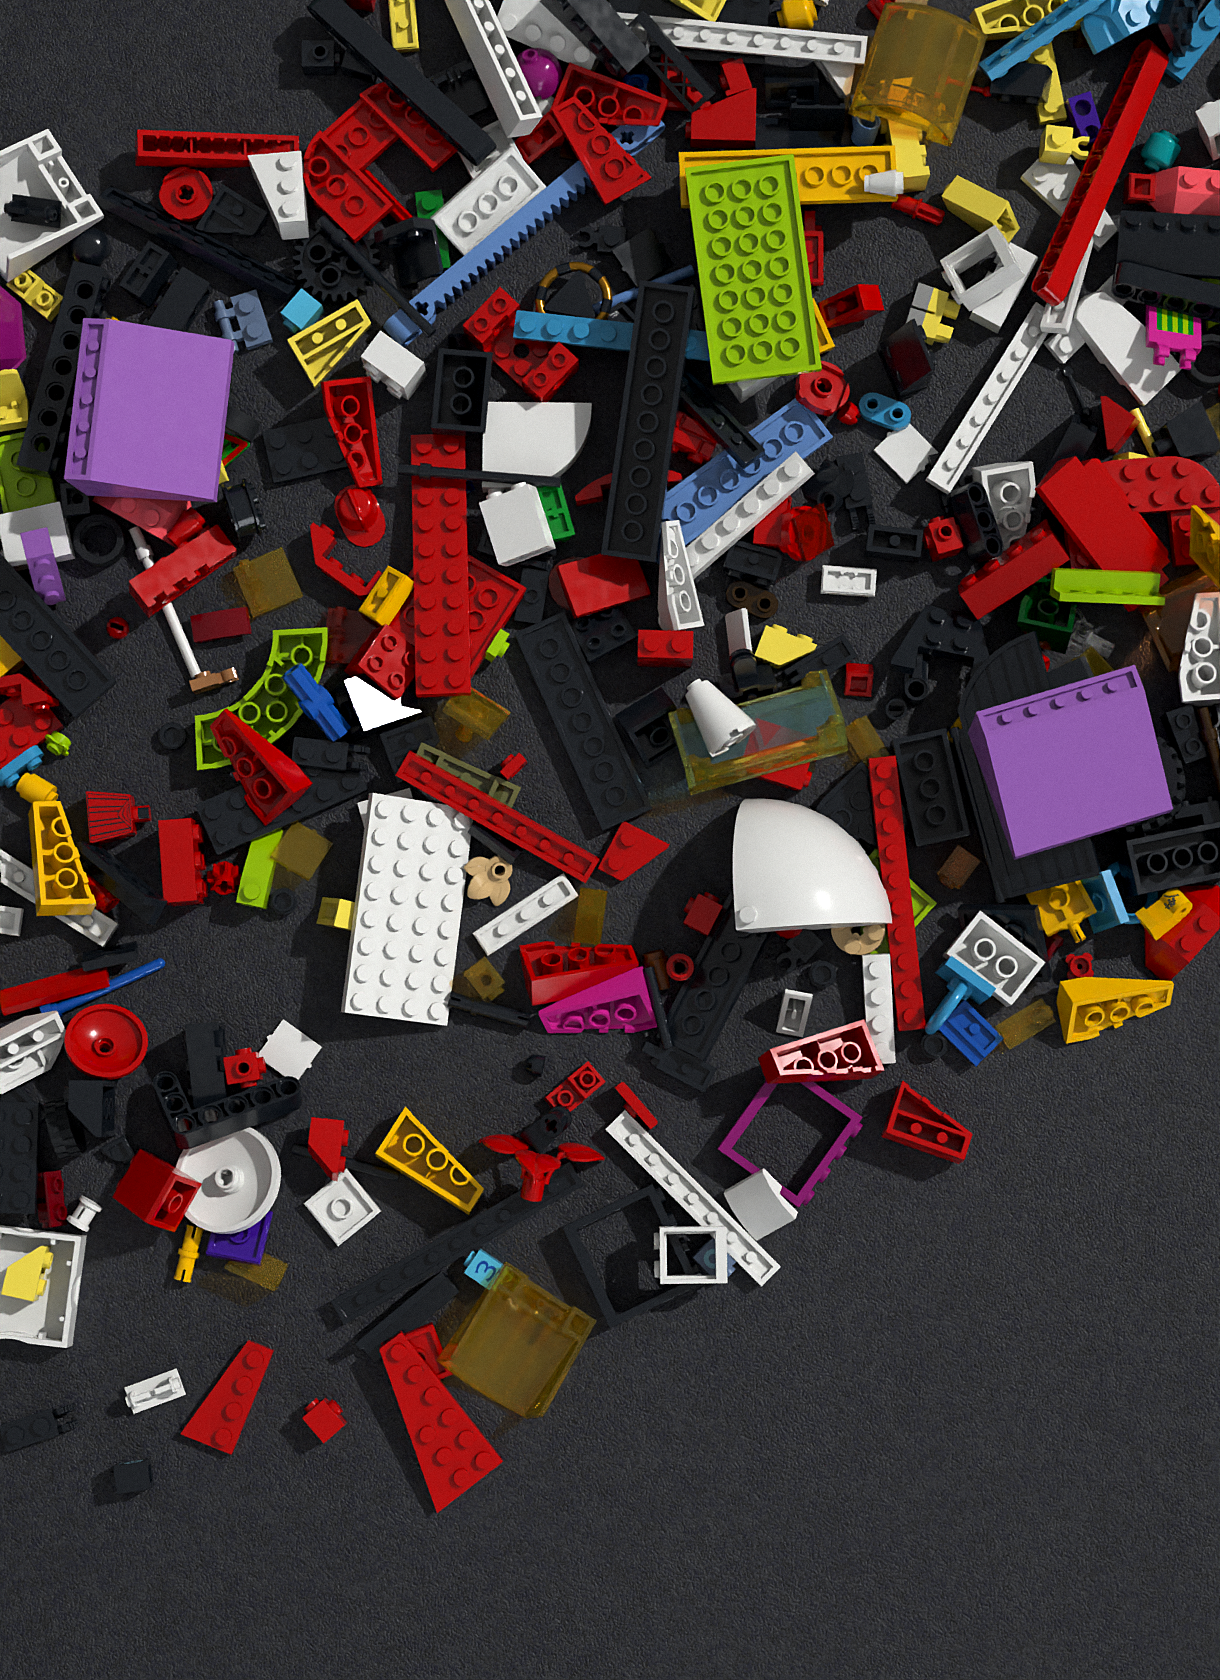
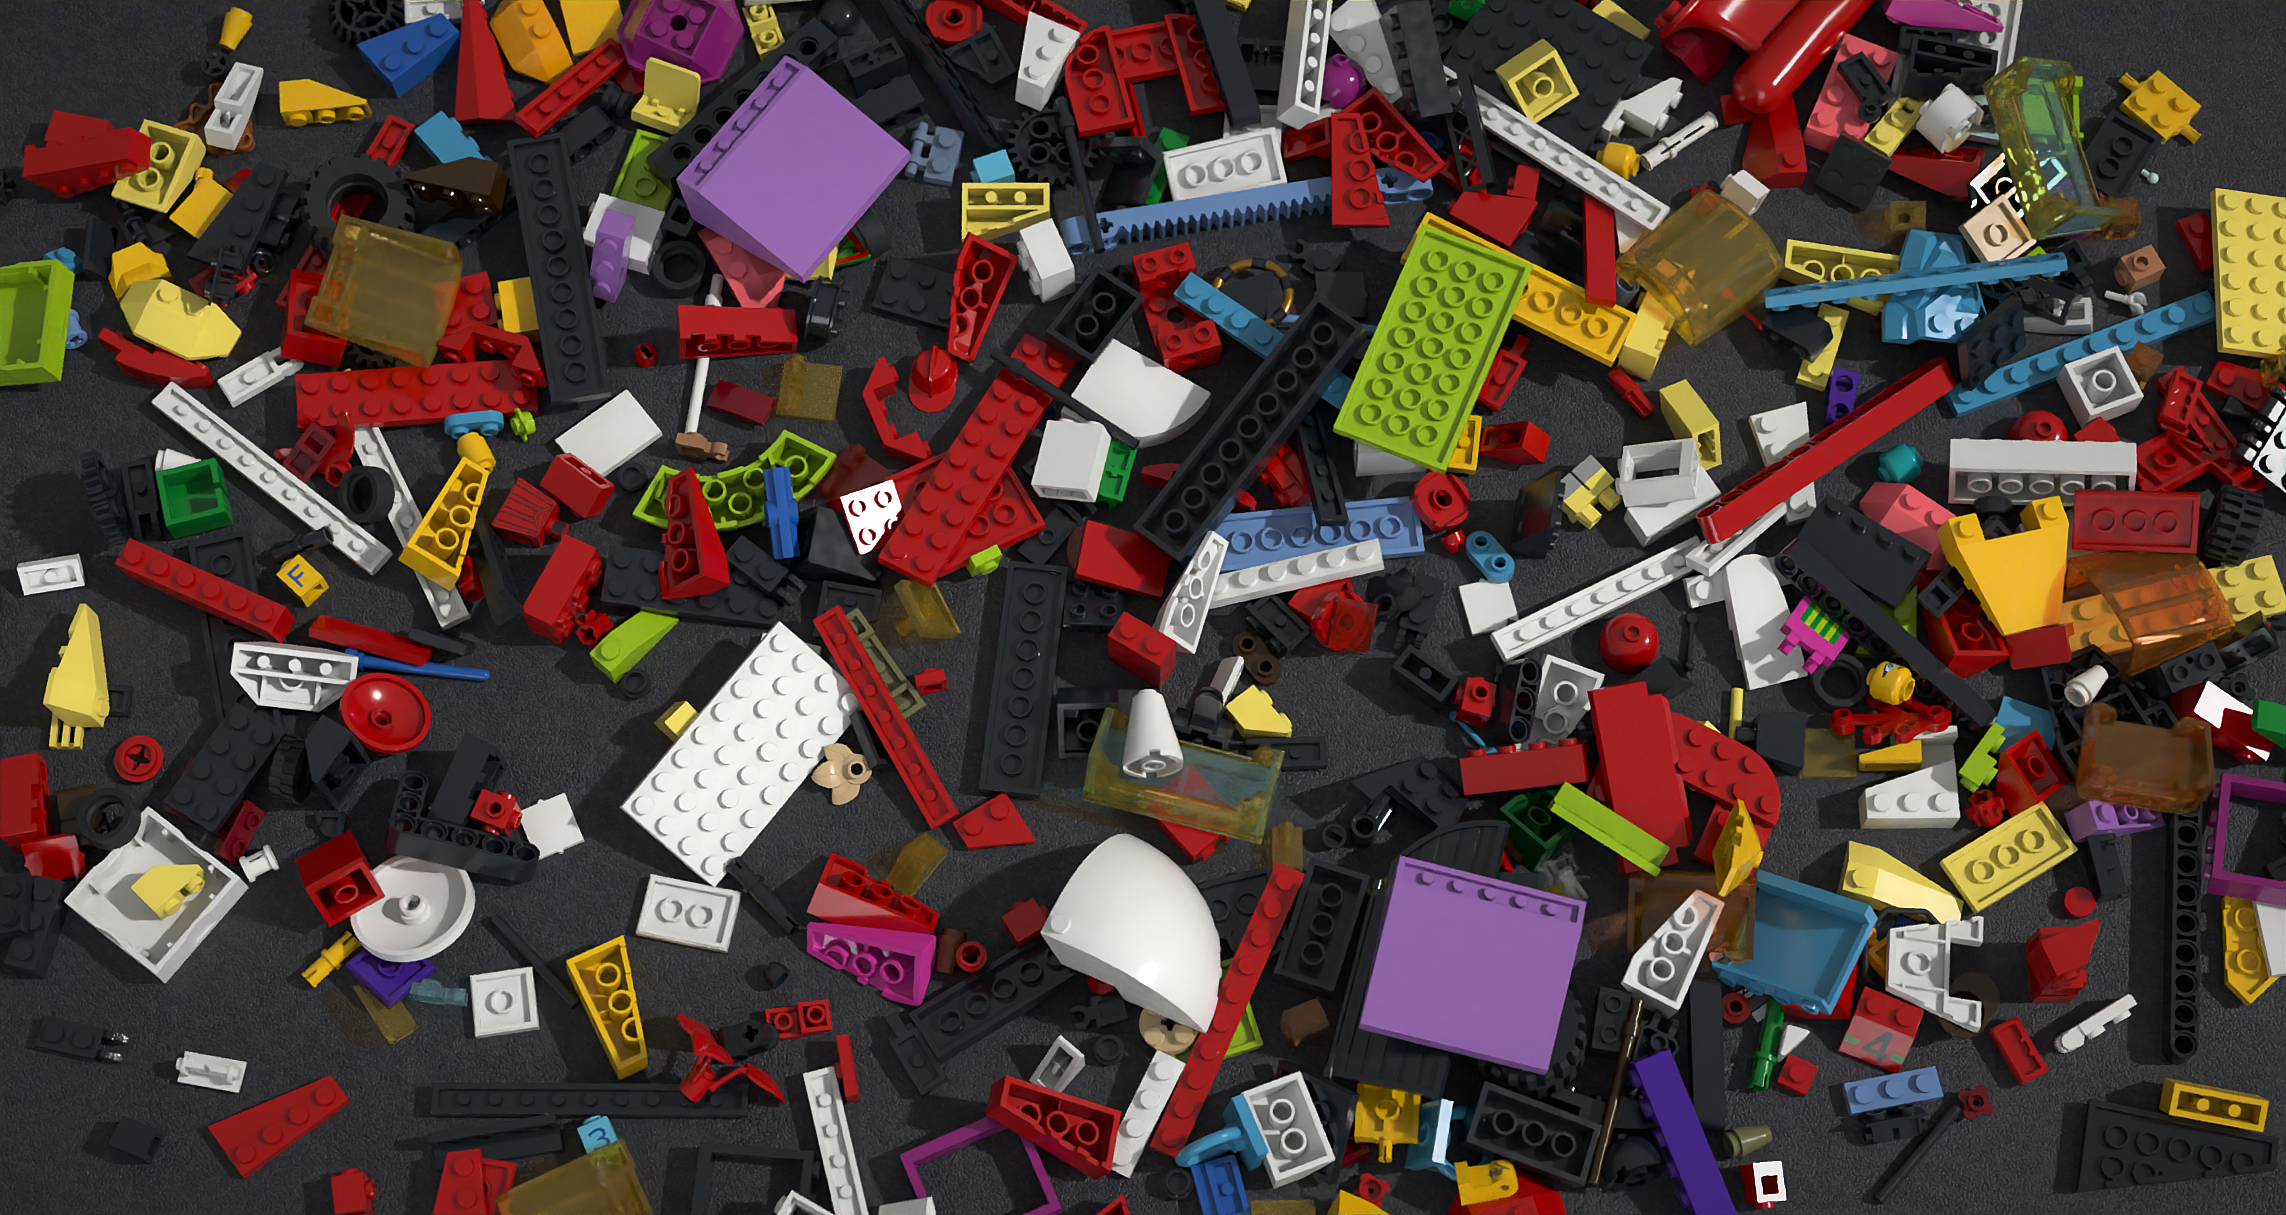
camera: 30 degrees right, 15 degrees down
(132, 714) = (610, 434): none -> white tile
(135, 770) = (577, 485): none -> red brick
(186, 526) = (764, 296): red cone -> none
(282, 1232) = (432, 992): none -> clear light blue plate
(301, 850) = (682, 645): clear yellow piece -> none
(326, 1144) = (527, 929): red slope -> none
(387, 596) = (909, 458): yellow slope -> none
(439, 1056) = (688, 913): none -> white tile
(478, 971) = (778, 853): clear yellow brick -> none
(525, 914) = (856, 827): white tile -> none
(658, 1008) = (926, 984): black bar -> none
(832, 107) = (1598, 252): none -> red tile
(848, 581) = (1360, 692): white plate -> none
(858, 679) = (1314, 790): red slope -> none
(884, 183) = (1607, 340): white cone -> none
(971, 570) = (1472, 734): none -> dark azure hinge
(1030, 420) = (1628, 643): none -> red cylinder
(1058, 145) = (1800, 404): light yellow brick -> none
(1117, 424) = (1711, 691): red slope -> none
(1139, 188) = (1860, 488): red slope -> none

